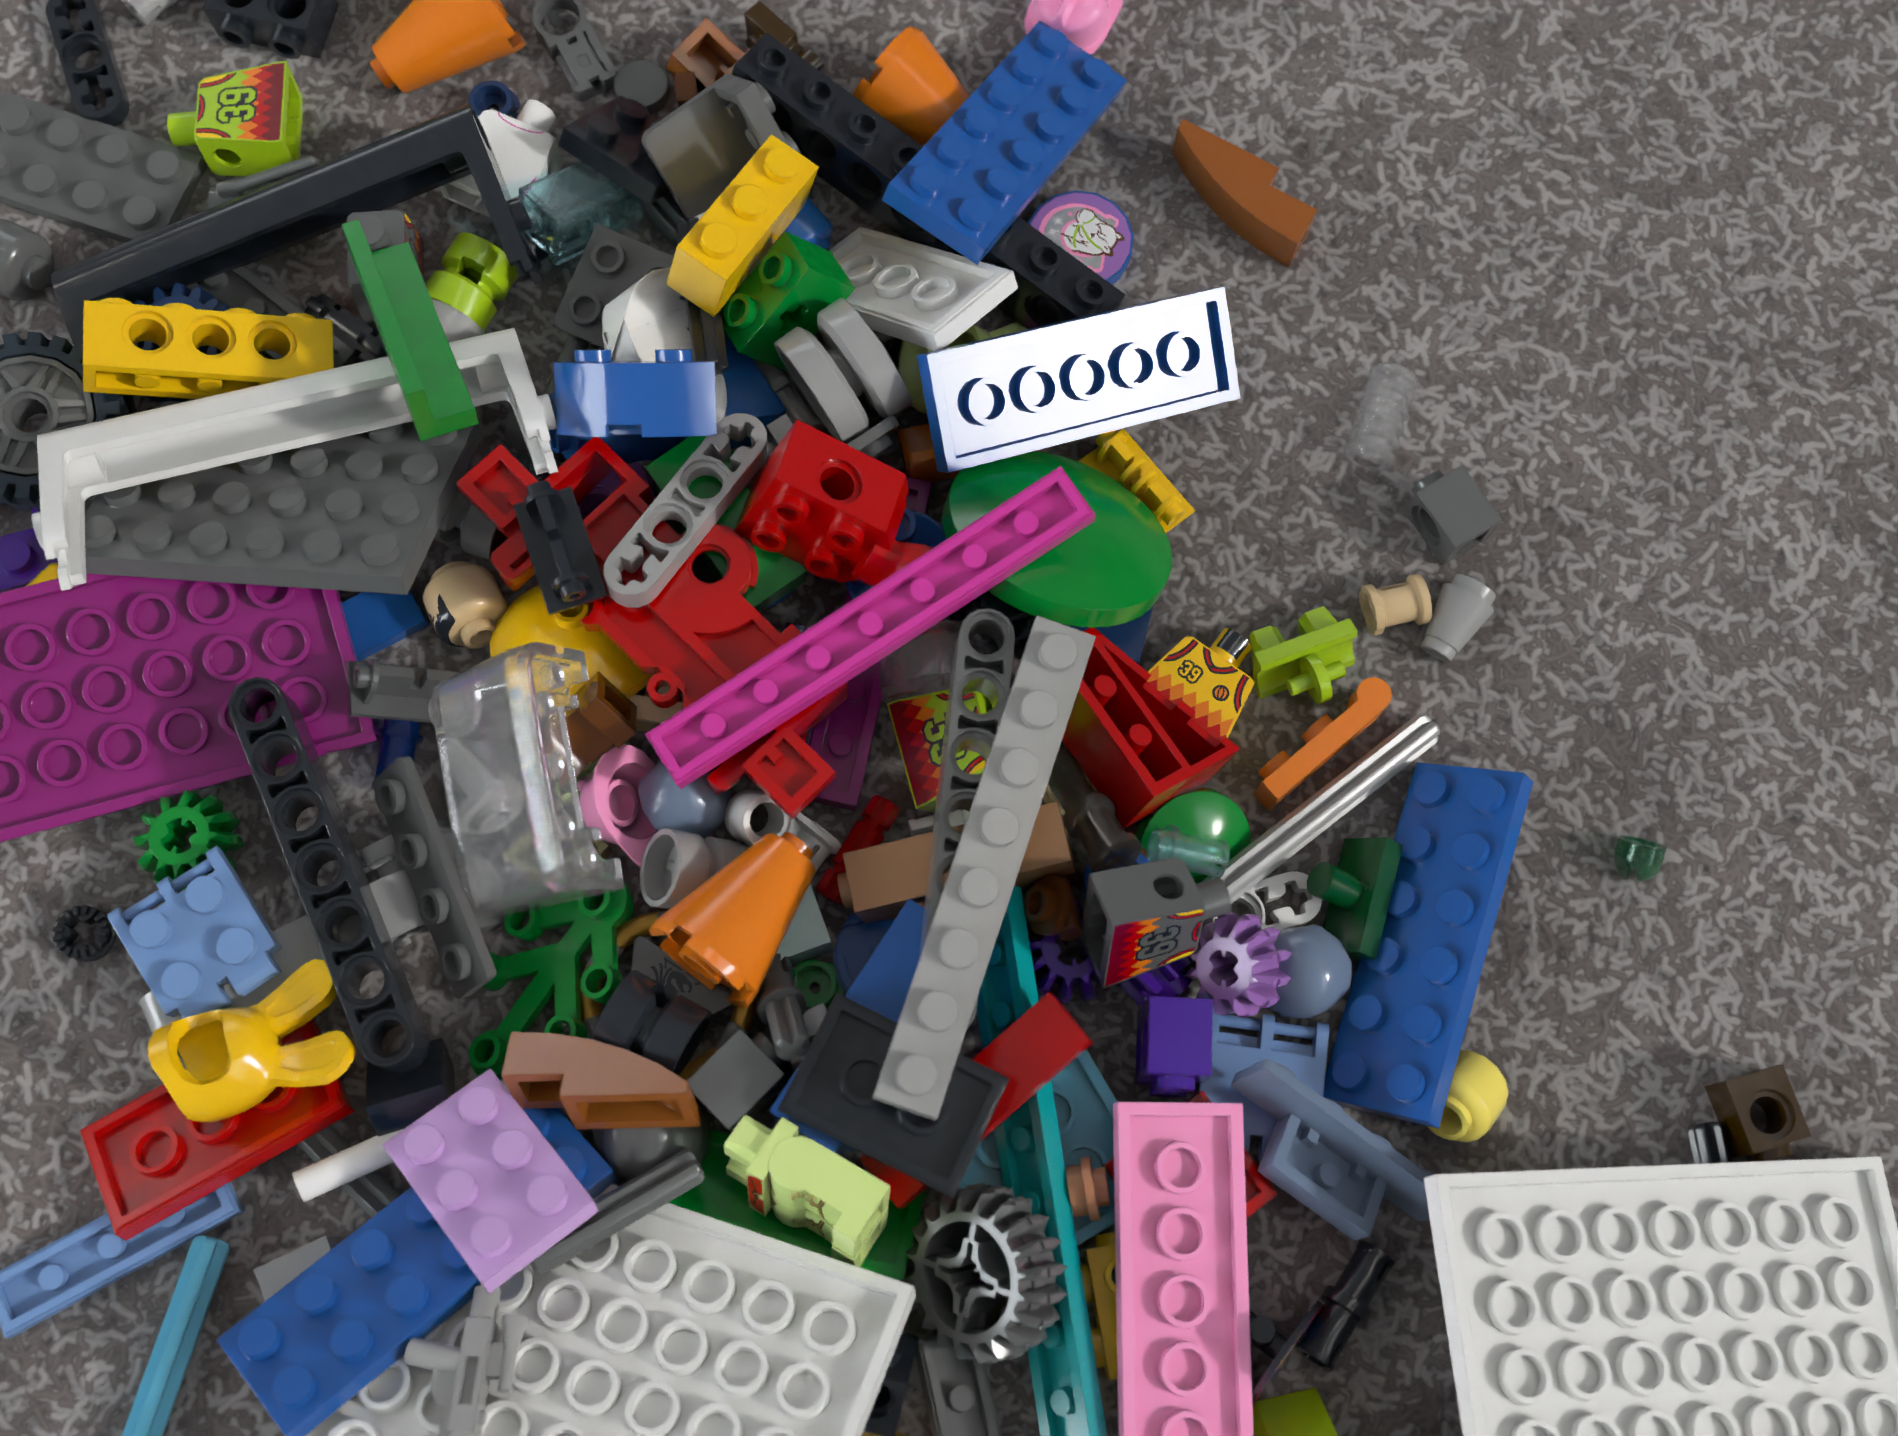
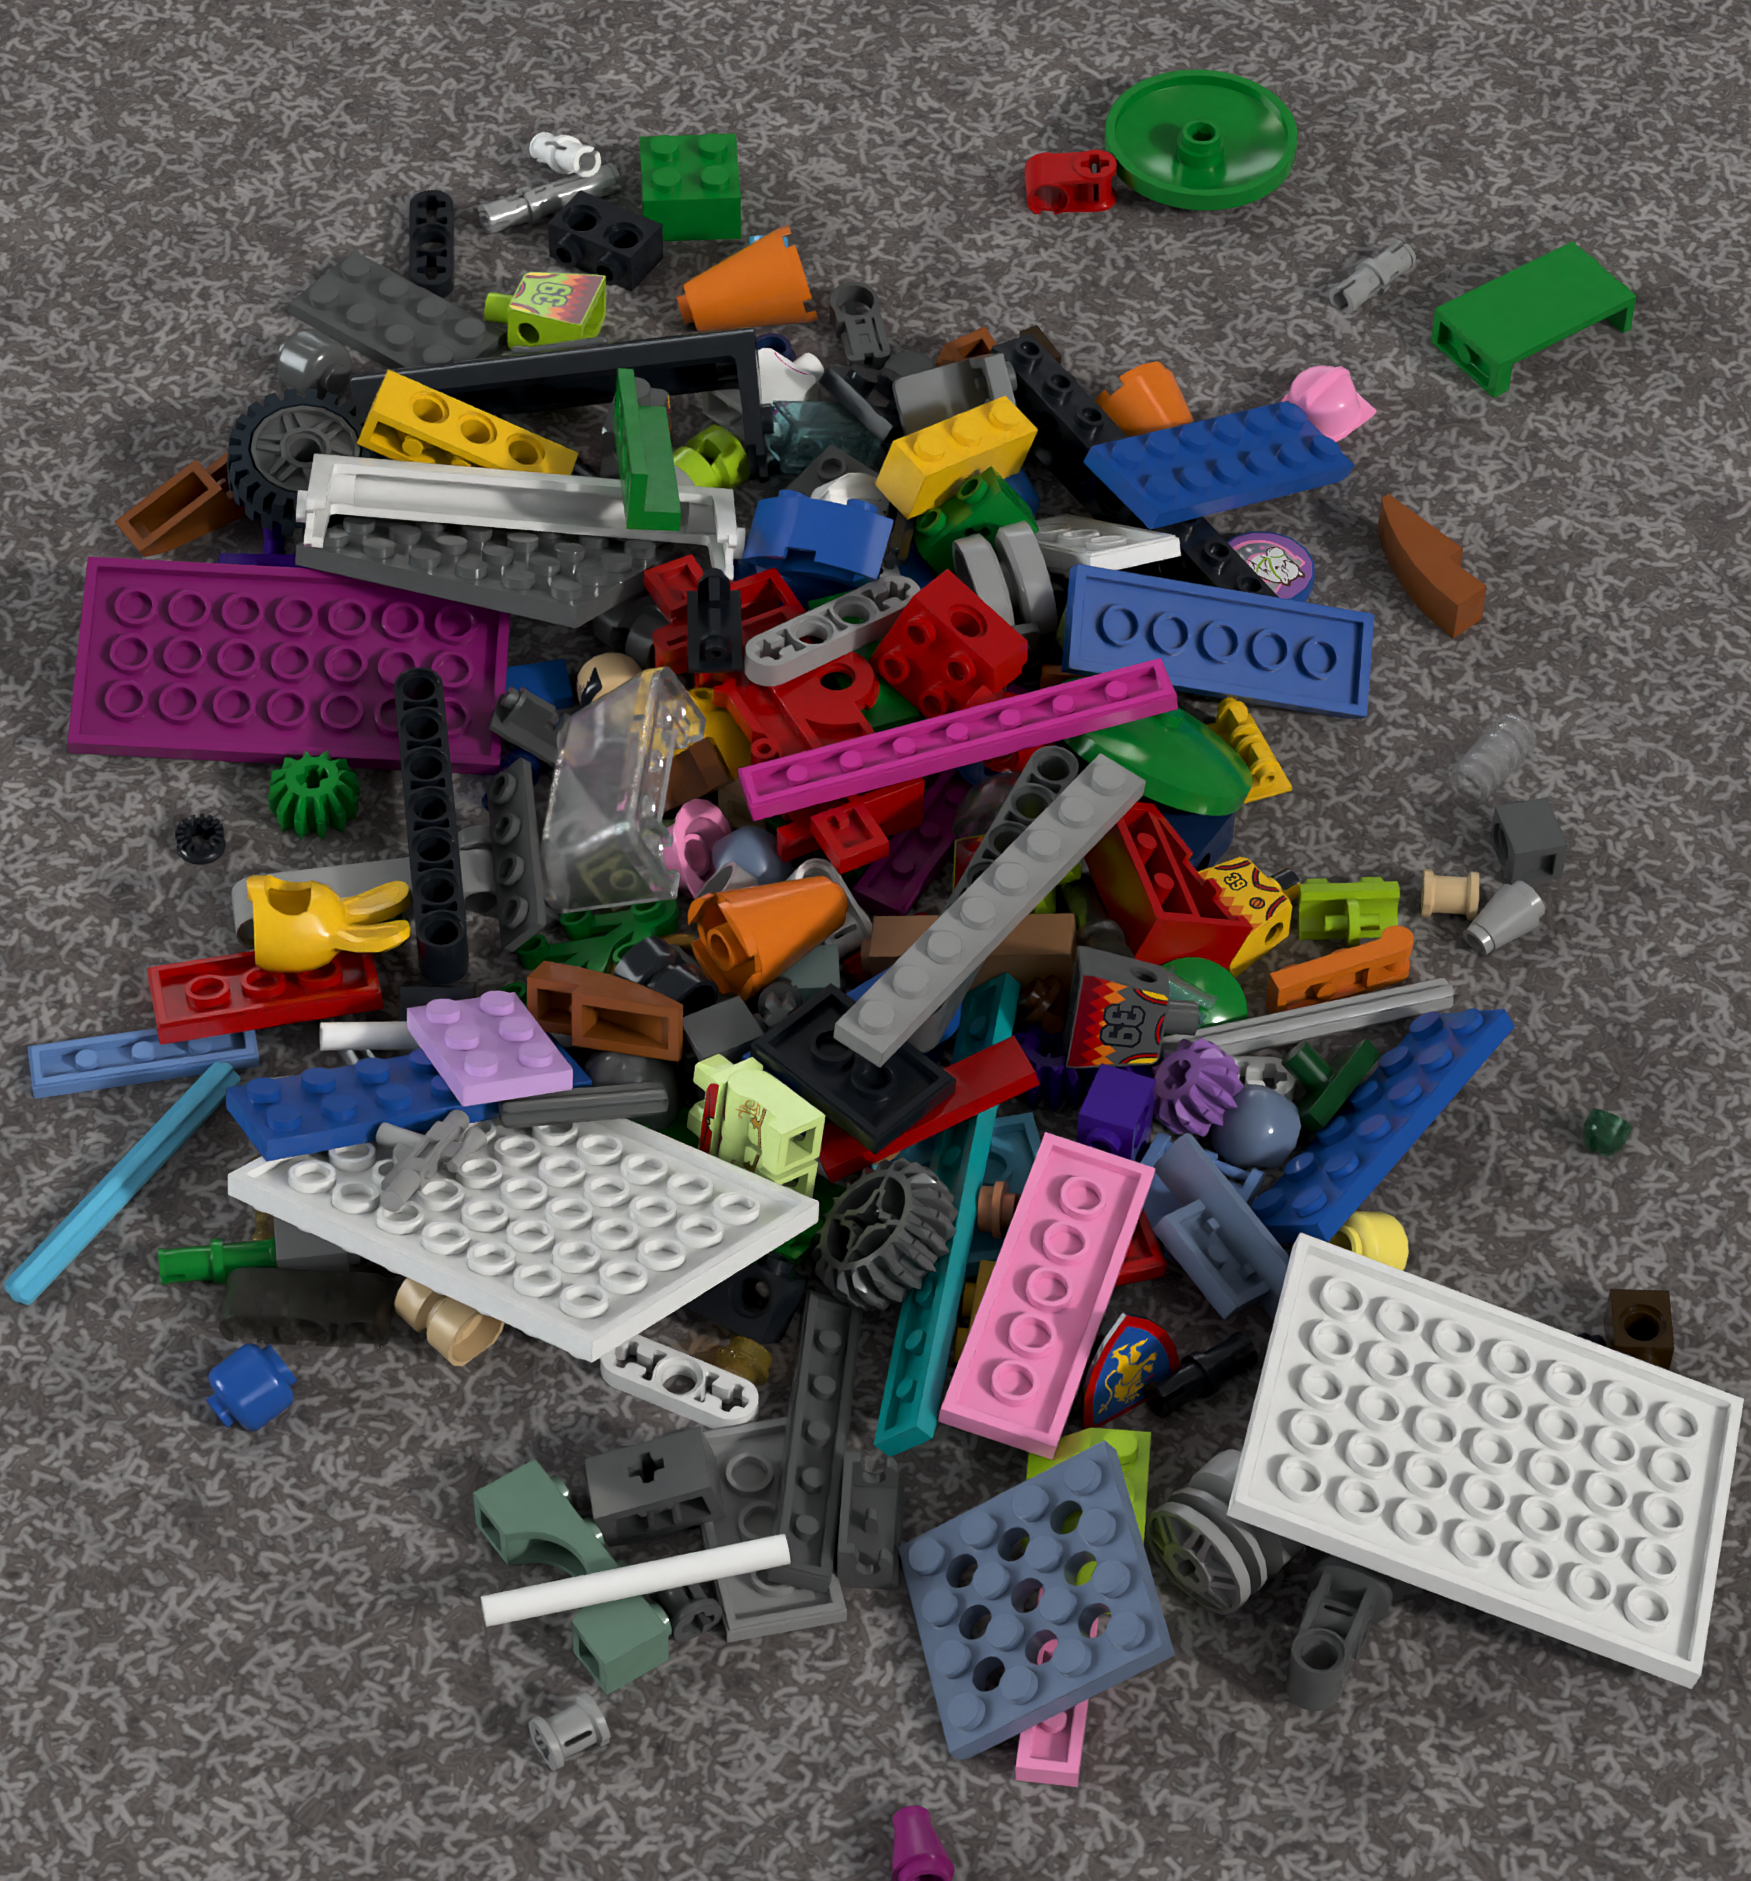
camera: 20 degrees right, 25 degrees down
(199, 939) = (306, 841): medium blue plate -> none

